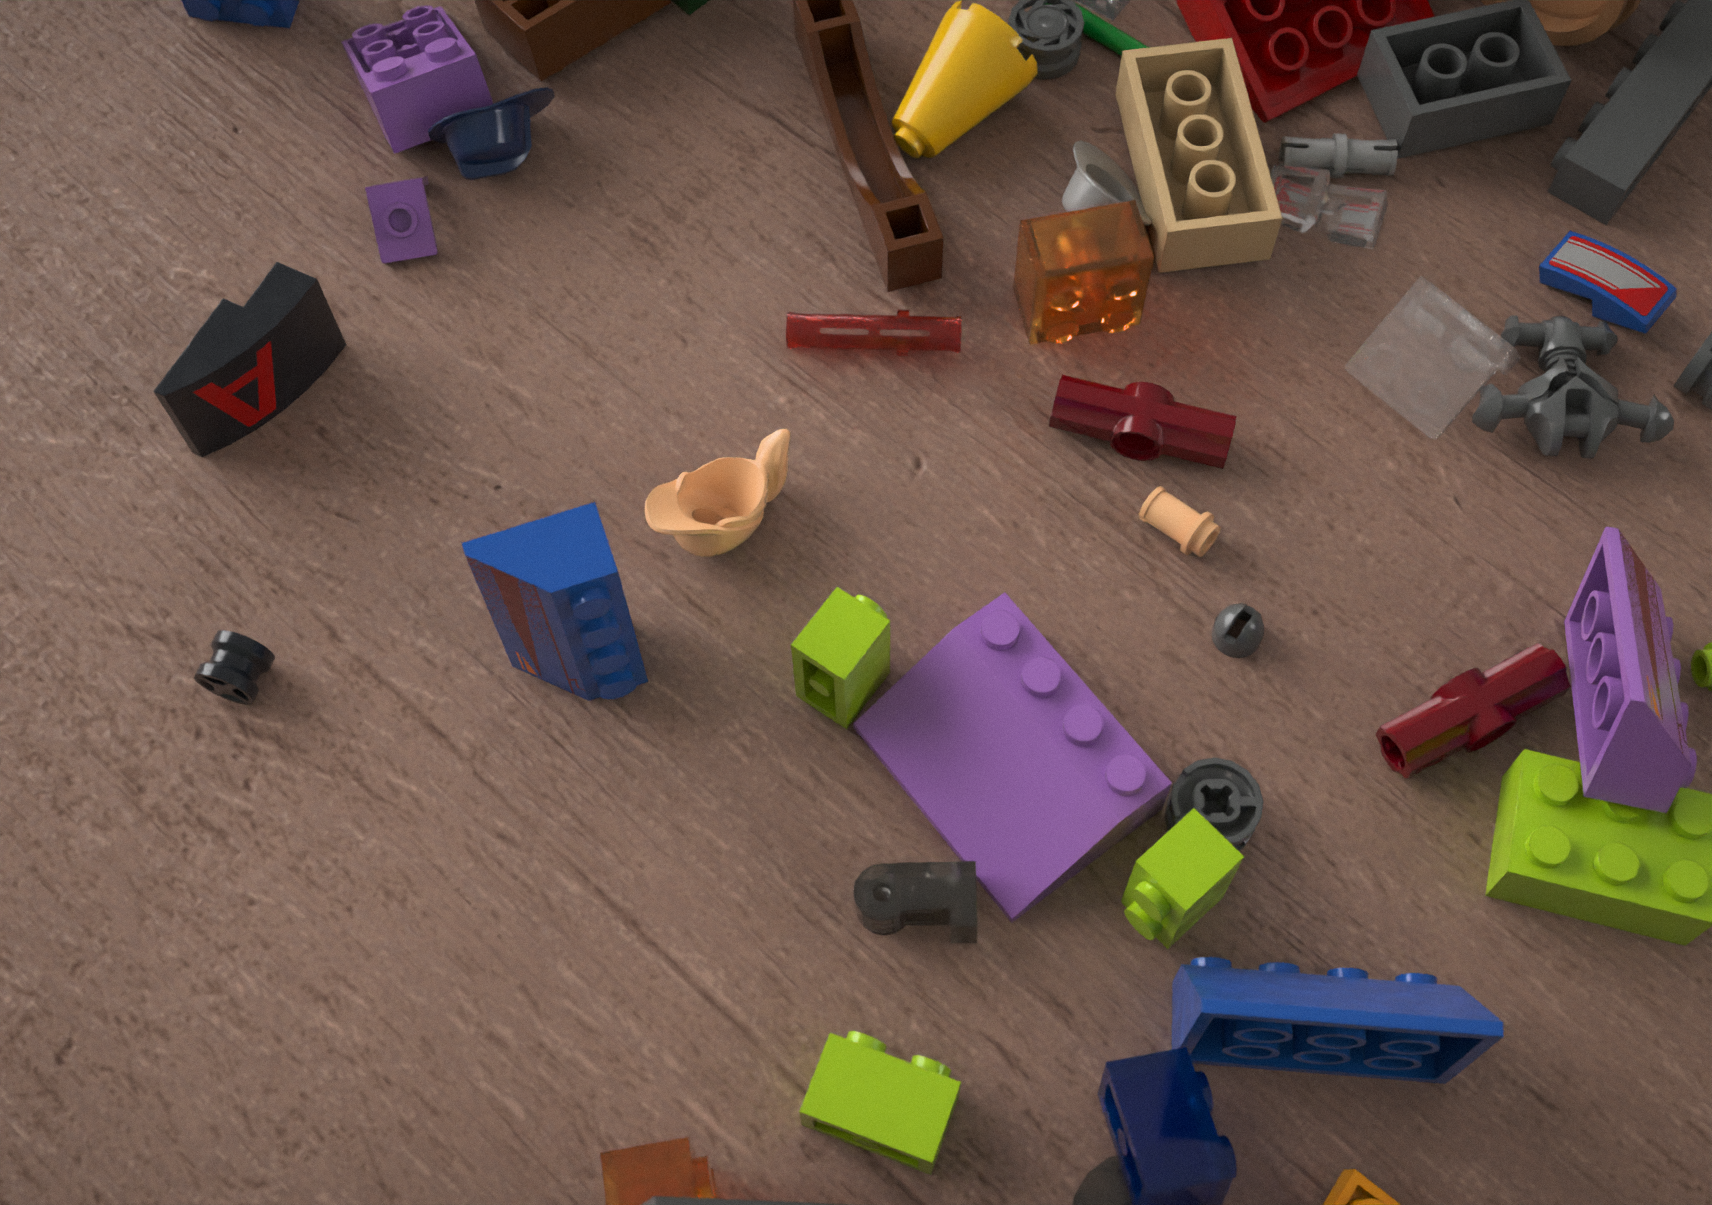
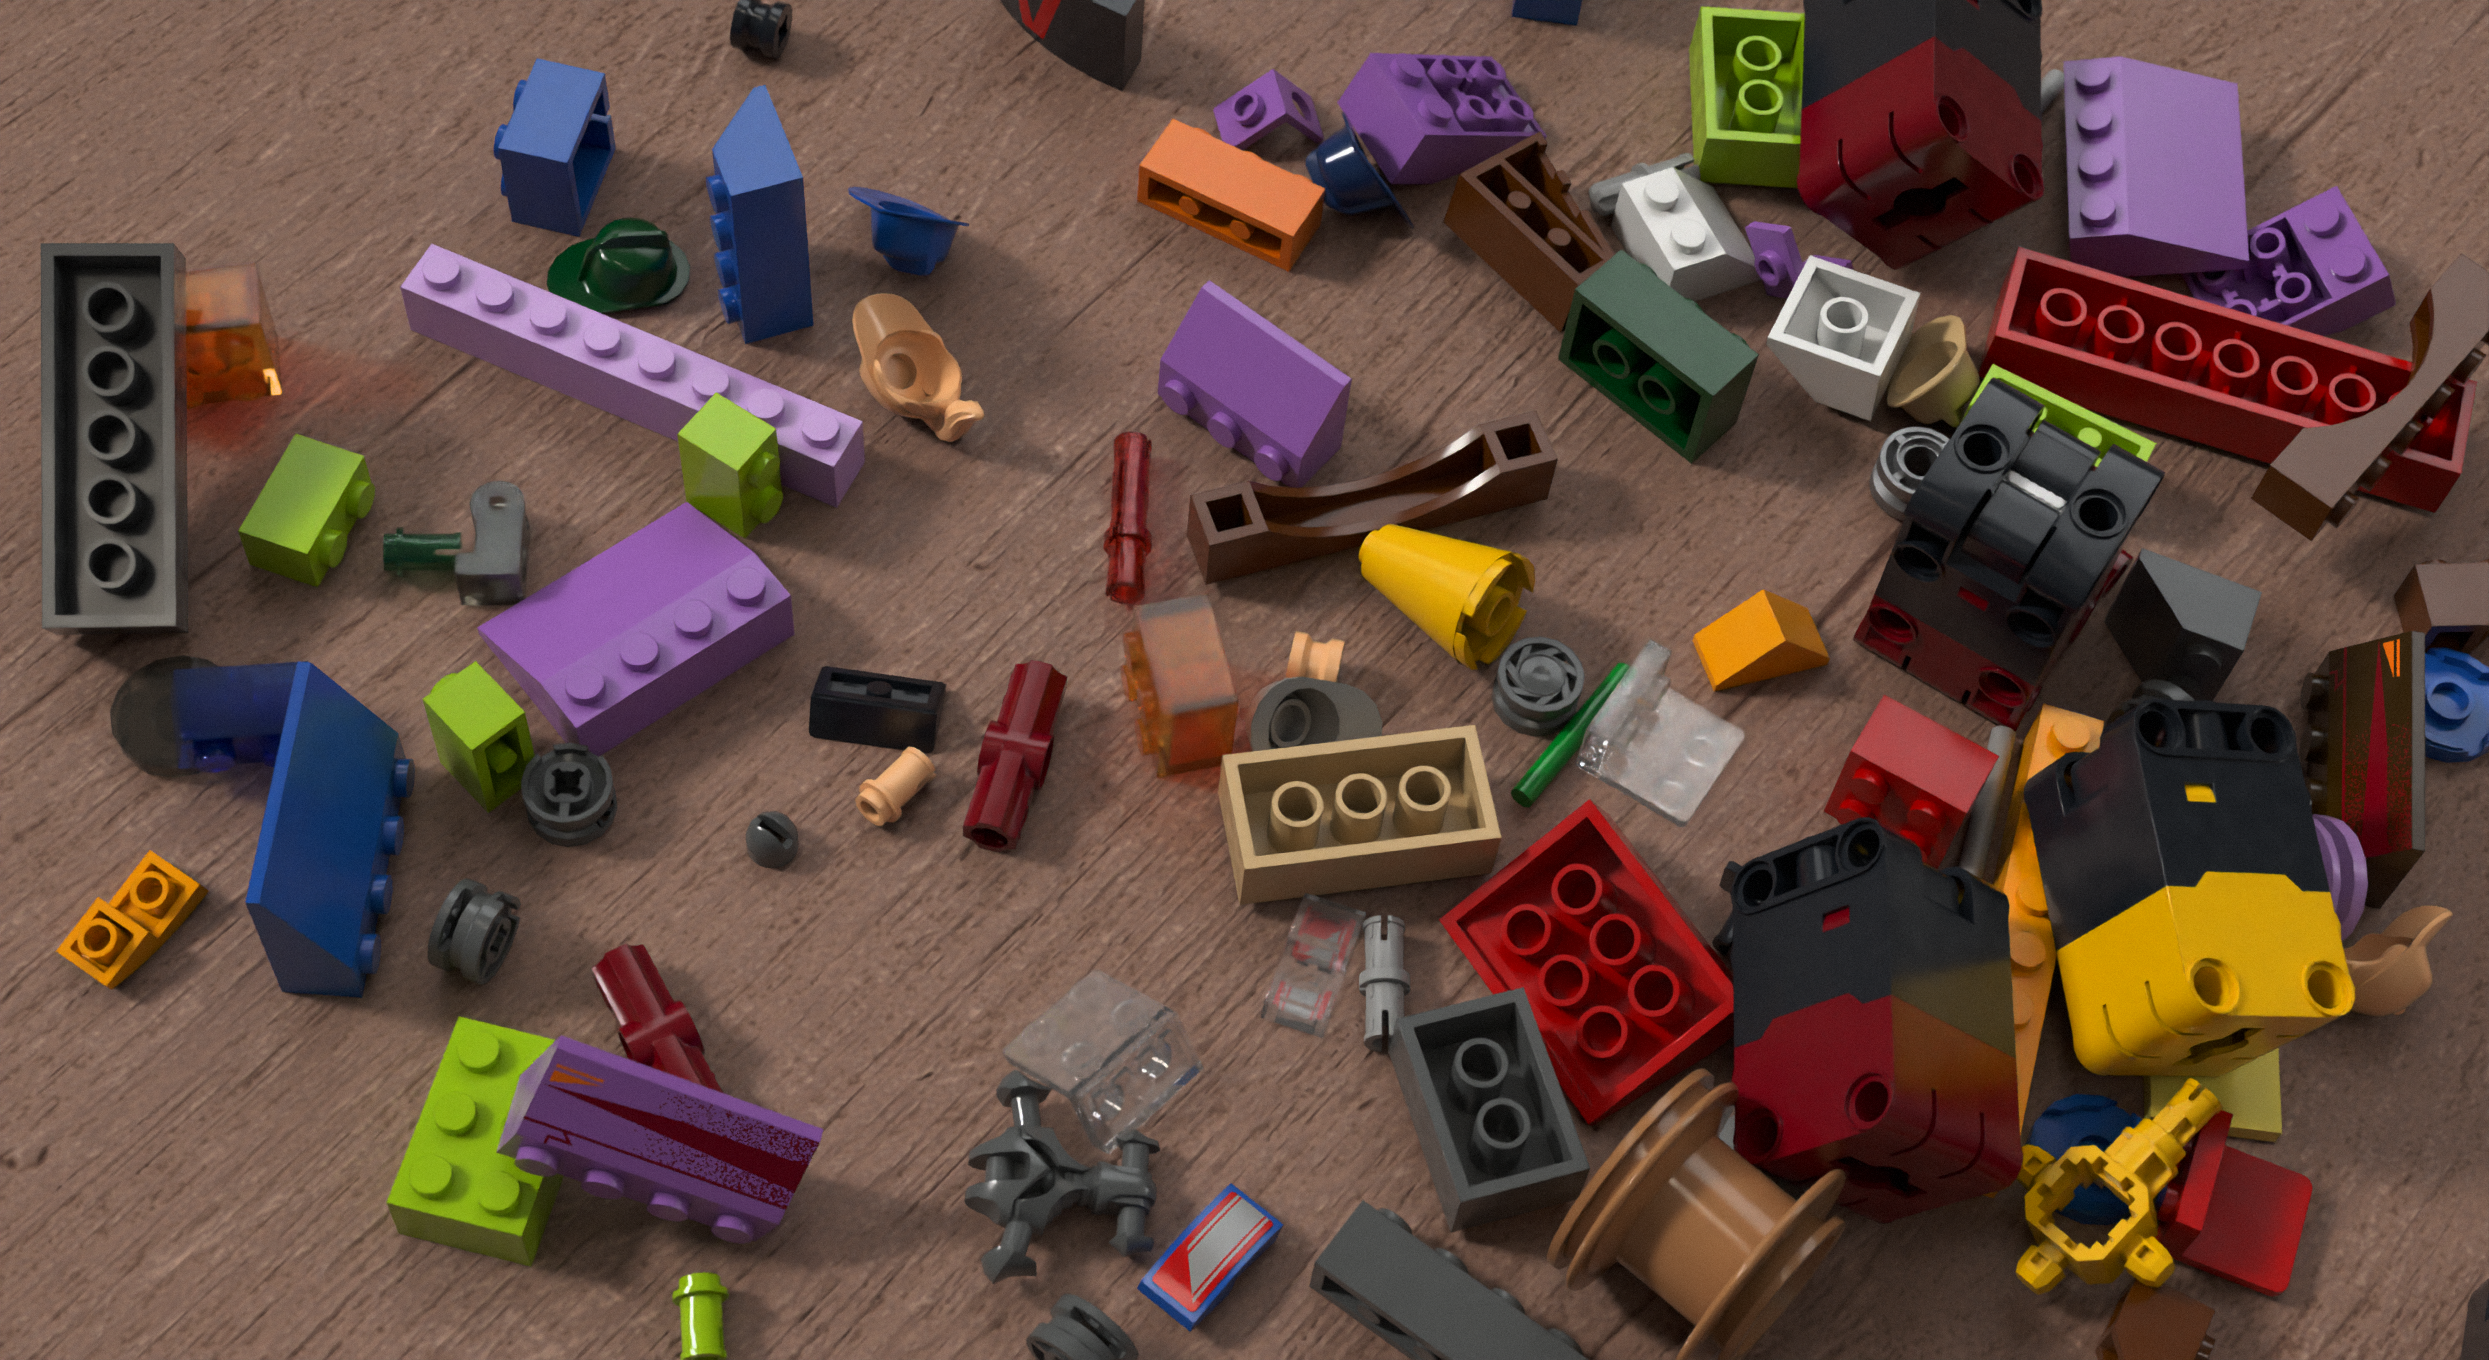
camera: 80 degrees right, 5 degrees down
(406, 855) = (556, 146): none -> blue piece
(500, 240) = (1230, 194): none -> orange brick
(532, 496) = (907, 232): none -> blue piece
(553, 810) = (621, 269): none -> dark green piece
(695, 790) = (621, 366): none -> lavender brick
(746, 214) = (1254, 388): none -> medium lavender slope
(927, 978) = (417, 551): none -> clear green pin
(1036, 187) = (1315, 658): none -> light nougat wheel
(1086, 544) = (876, 709): none -> black slope
(1389, 880) = (473, 931): none -> dark grey wheel

